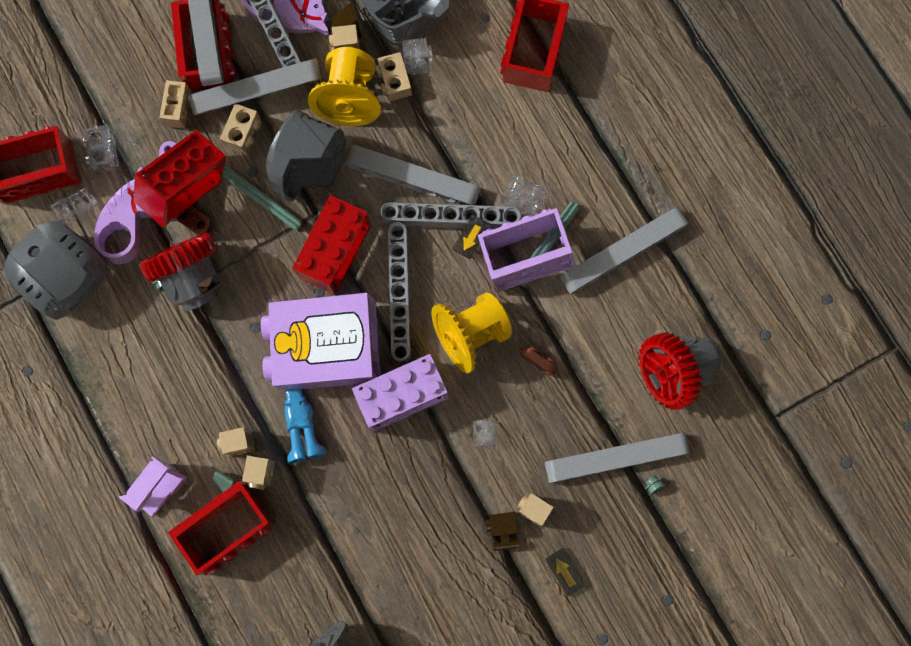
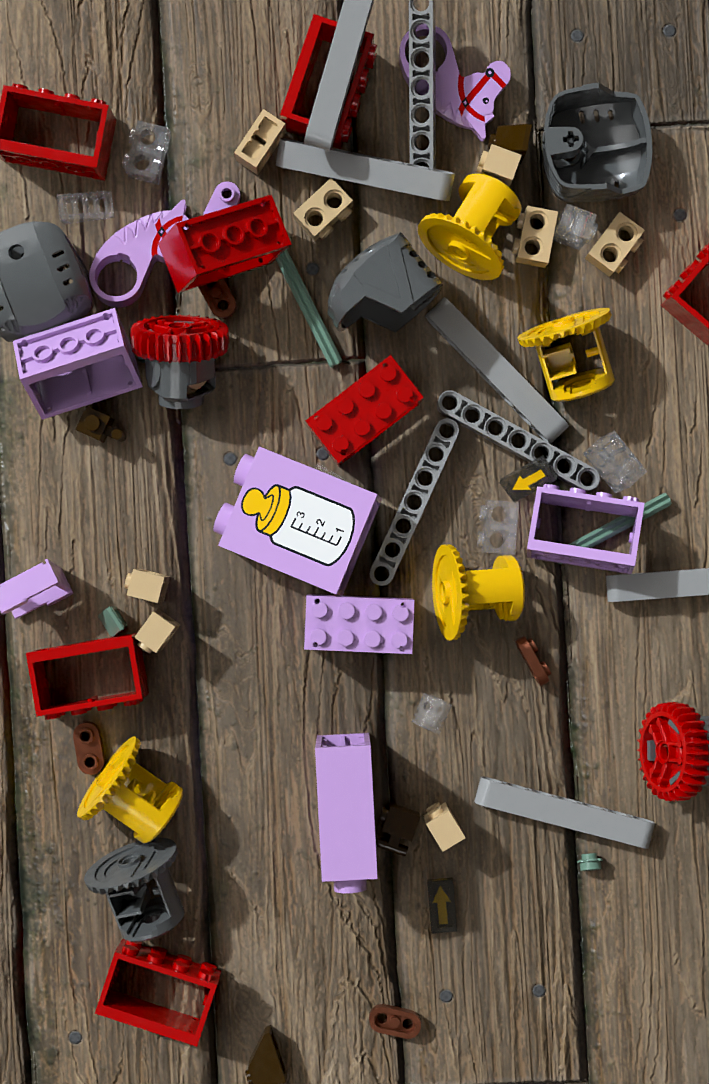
camera: 20 degrees right, 10 degrees up
(102, 298) = (77, 364): none -> lavender hose
(150, 348) = (98, 426): none -> dark brown brick
(251, 583) = (89, 748): none -> copper plate
(296, 600) = (131, 794): none -> yellow piece
(299, 416) = (230, 588): dark azure piece -> none
(449, 56) = (611, 242): none -> tan brick
(452, 145) = (560, 360): none -> yellow piece
(455, 529) = (346, 811): none -> lavender brick
(472, 279) = (506, 528): none -> clear brick

